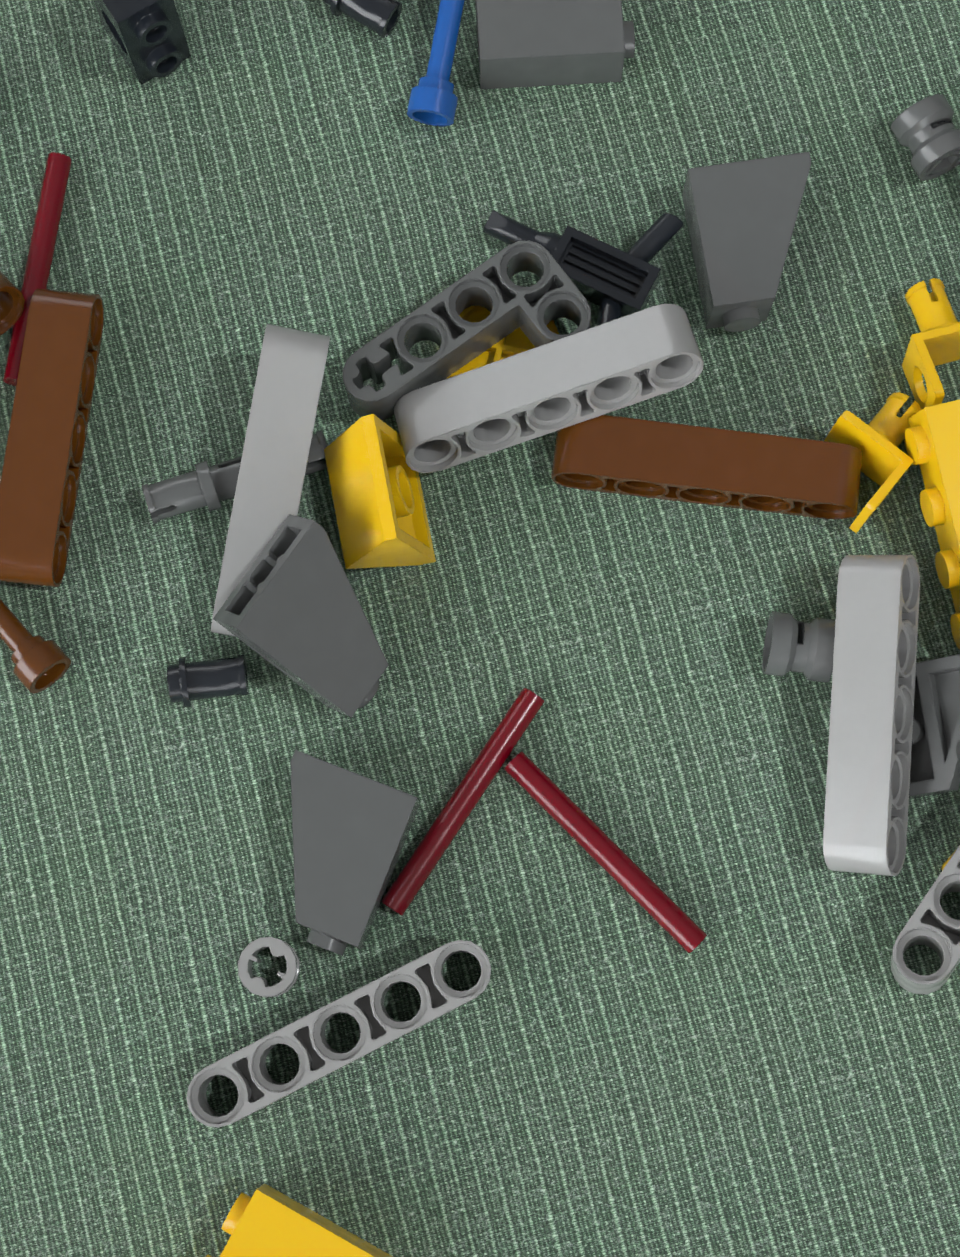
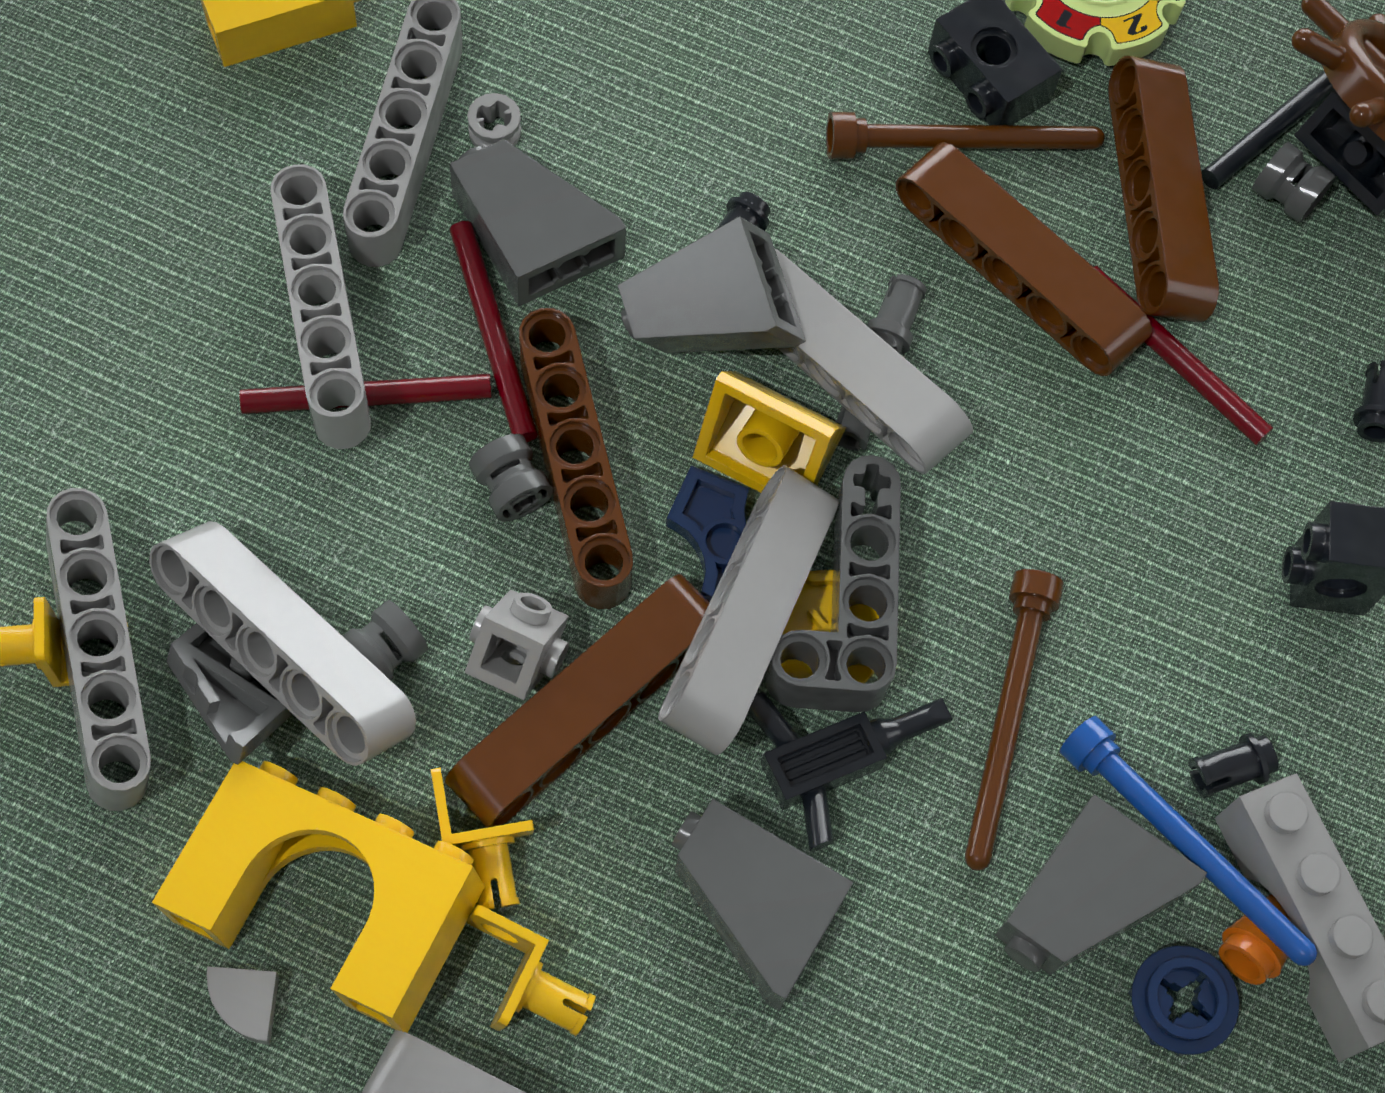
camera: 120 degrees right, 10 degrees down
(349, 219) = (1034, 599): none -> reddish brown piece
(479, 499) = (711, 519): none -> dark blue tile
(529, 604) = (575, 484): none -> reddish brown beam
(564, 976) = (304, 228): none -> light grey beam
(583, 668) = (510, 477): none -> dark grey wheel
(716, 542) = (517, 643): none -> light grey brick

